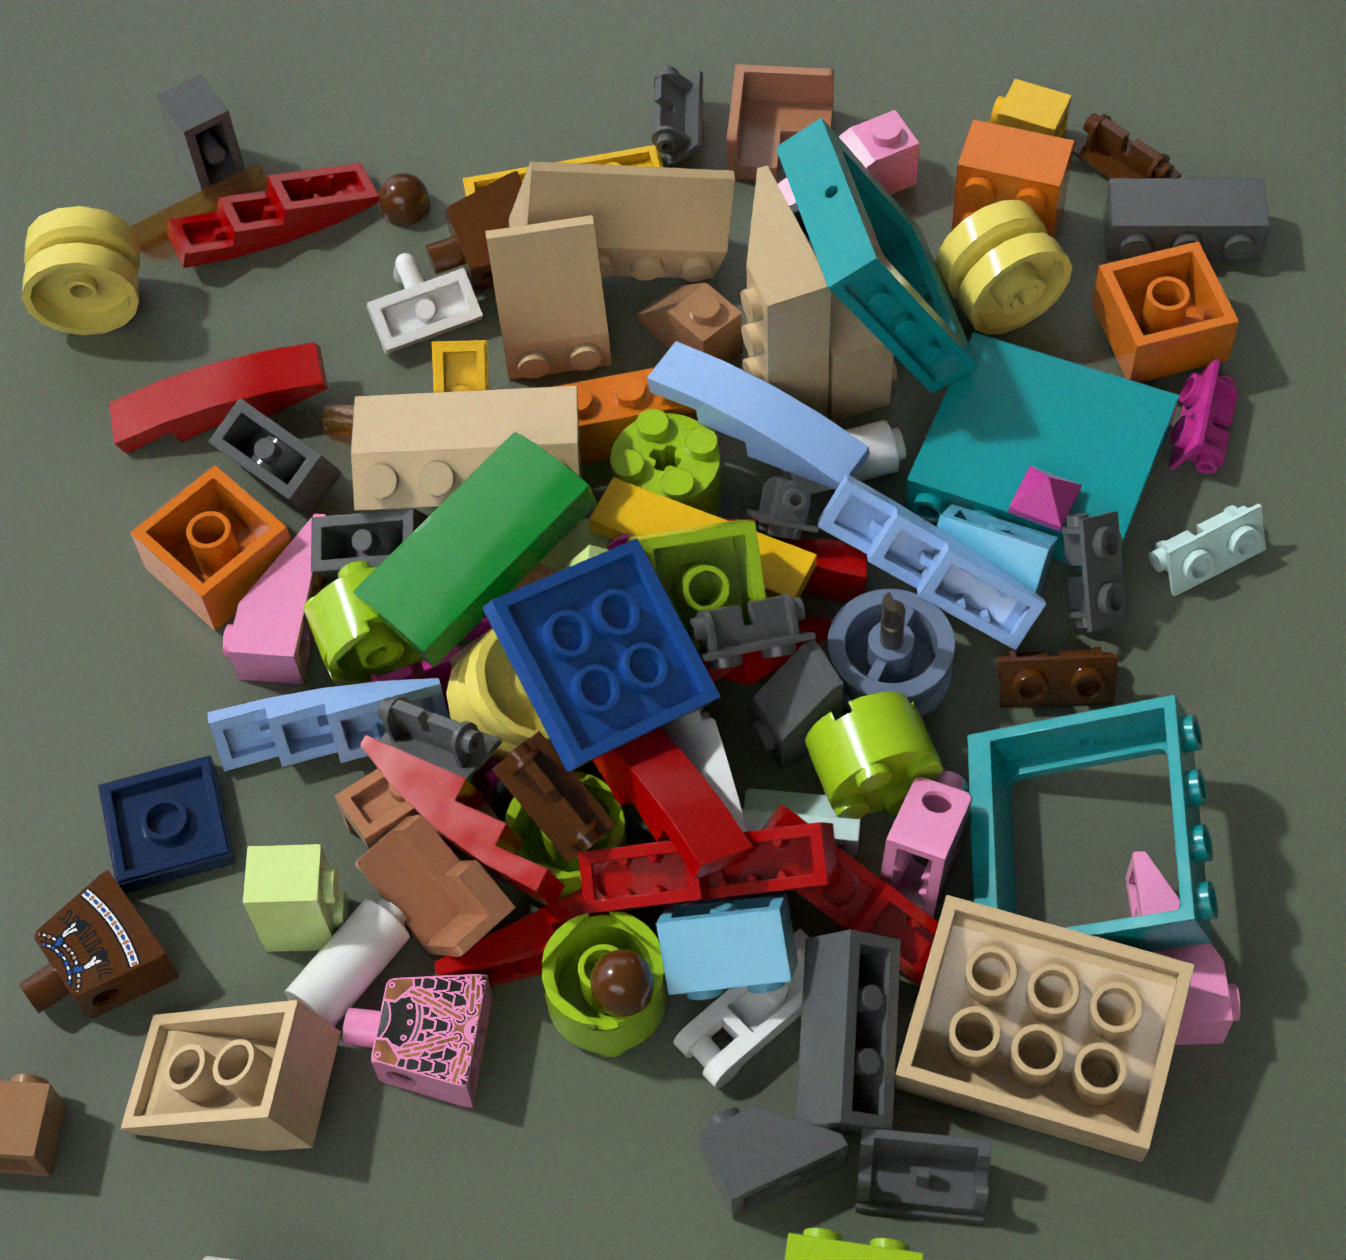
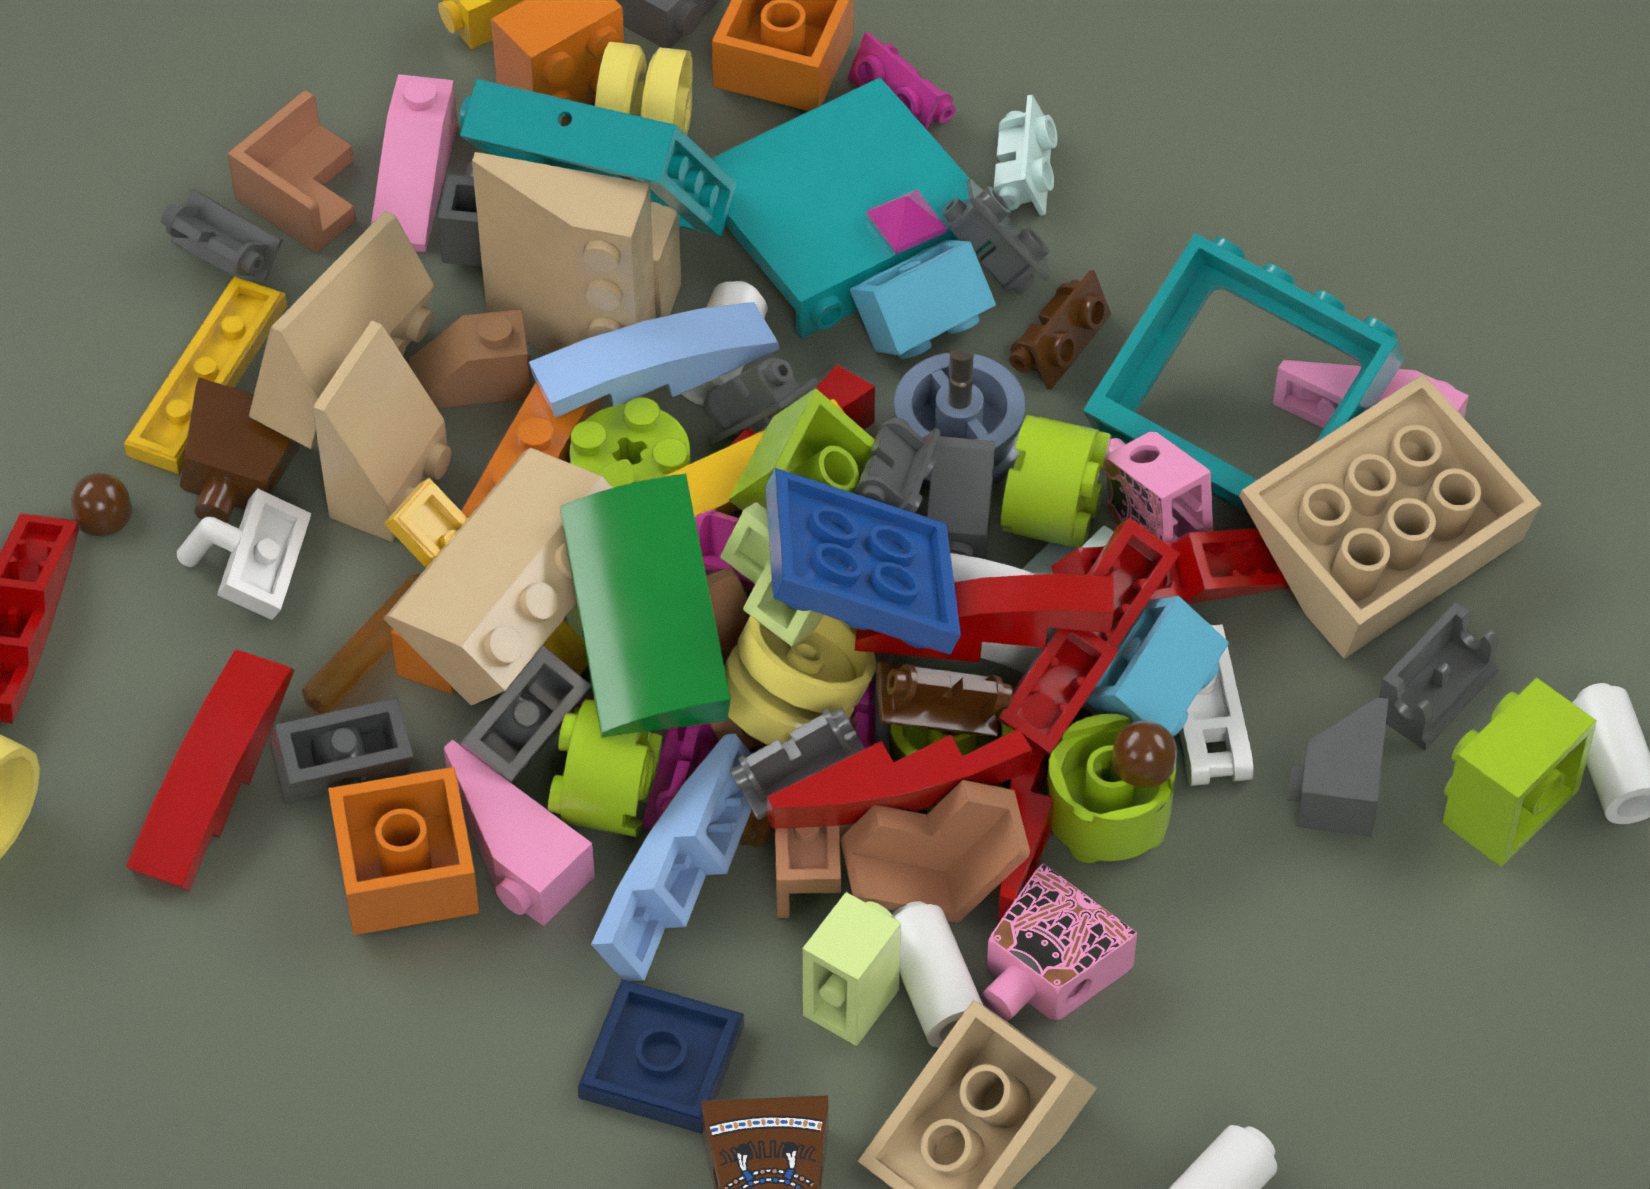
camera: 60 degrees left, 5 degrees down
(848, 1031) = (1293, 641): dark grey brick -> none
(931, 562) = (903, 330): light blue slope -> none

